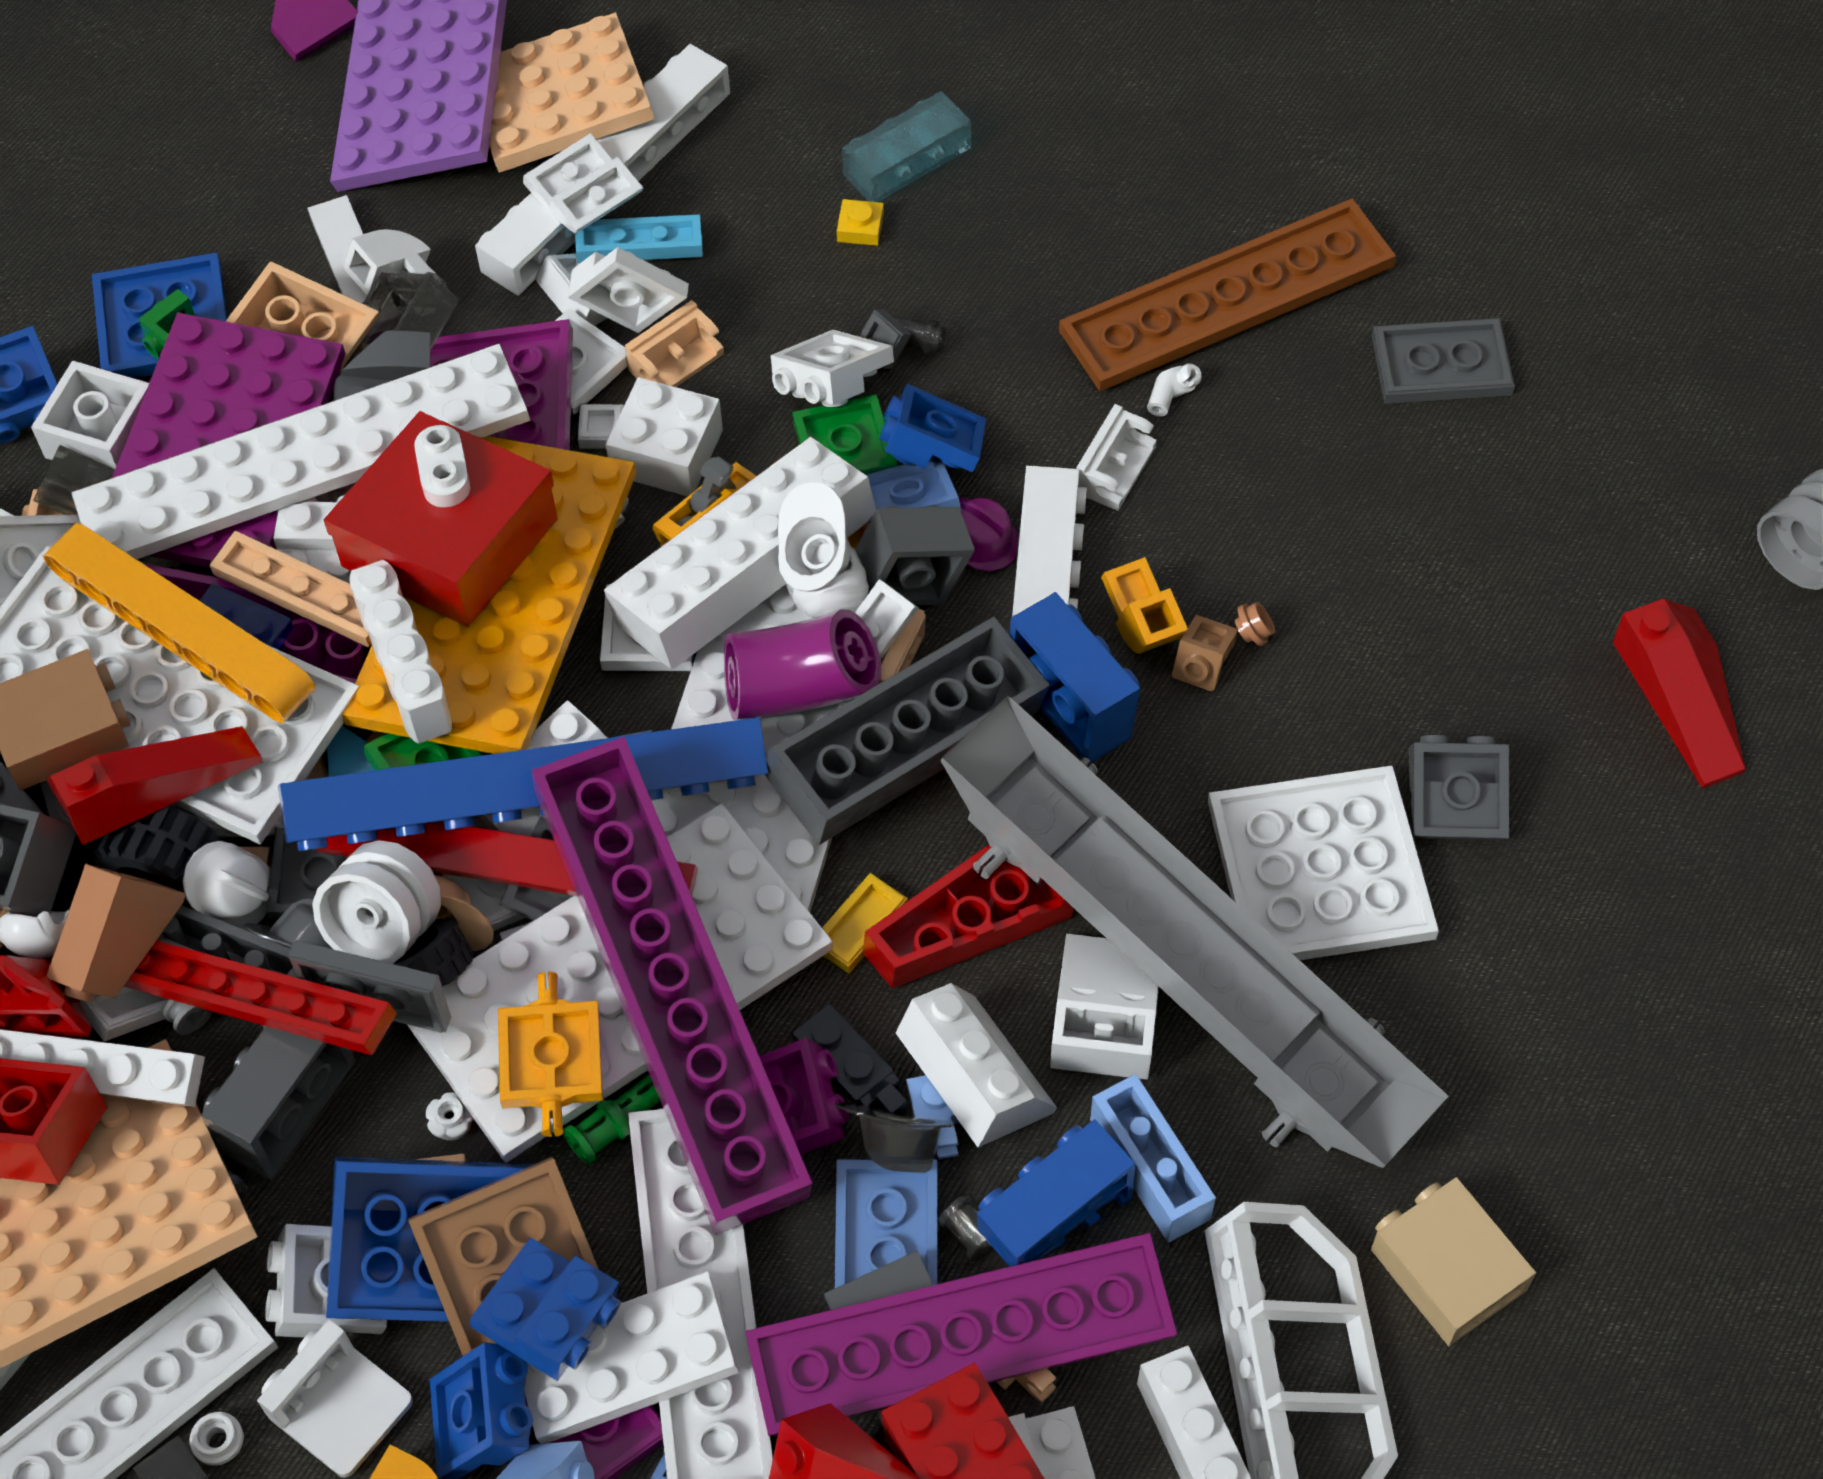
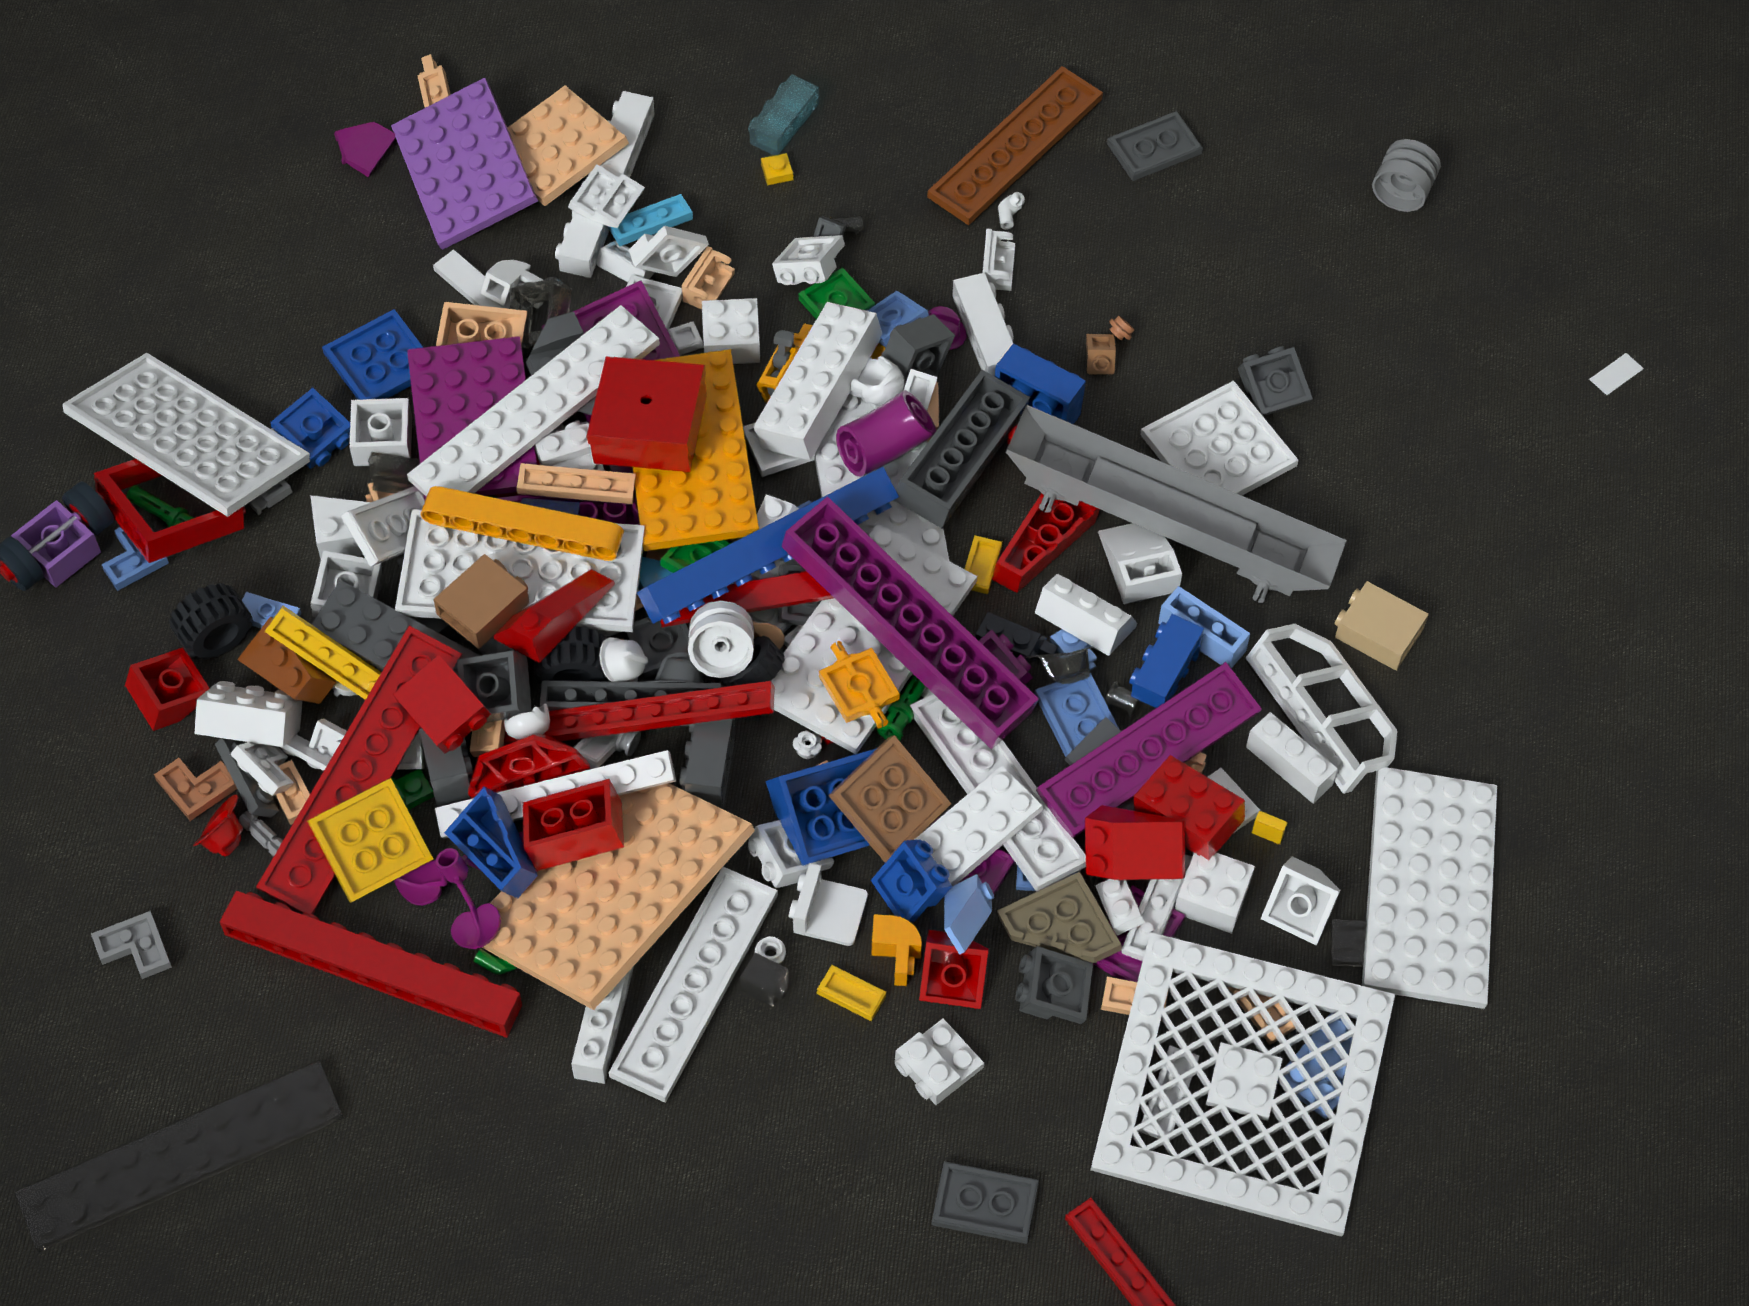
camera: 25 degrees left, 0 degrees up
(110, 931) = (578, 705): nougat slope -> none
(159, 320) = (393, 362): green bracket -> none
(401, 651) = (665, 495): white brick -> none
(411, 992) = (733, 674): dark grey tile -> none
(442, 466) = (636, 378): white plate -> none
(547, 1308) = (929, 811): blue plate -> none
(812, 537) = (864, 356): white piece -> none
(929, 426) = (886, 276): blue plate -> none
(1144, 613) = (1059, 343): light orange brick -> none
(1685, 685) = (1368, 286): red wedge -> none

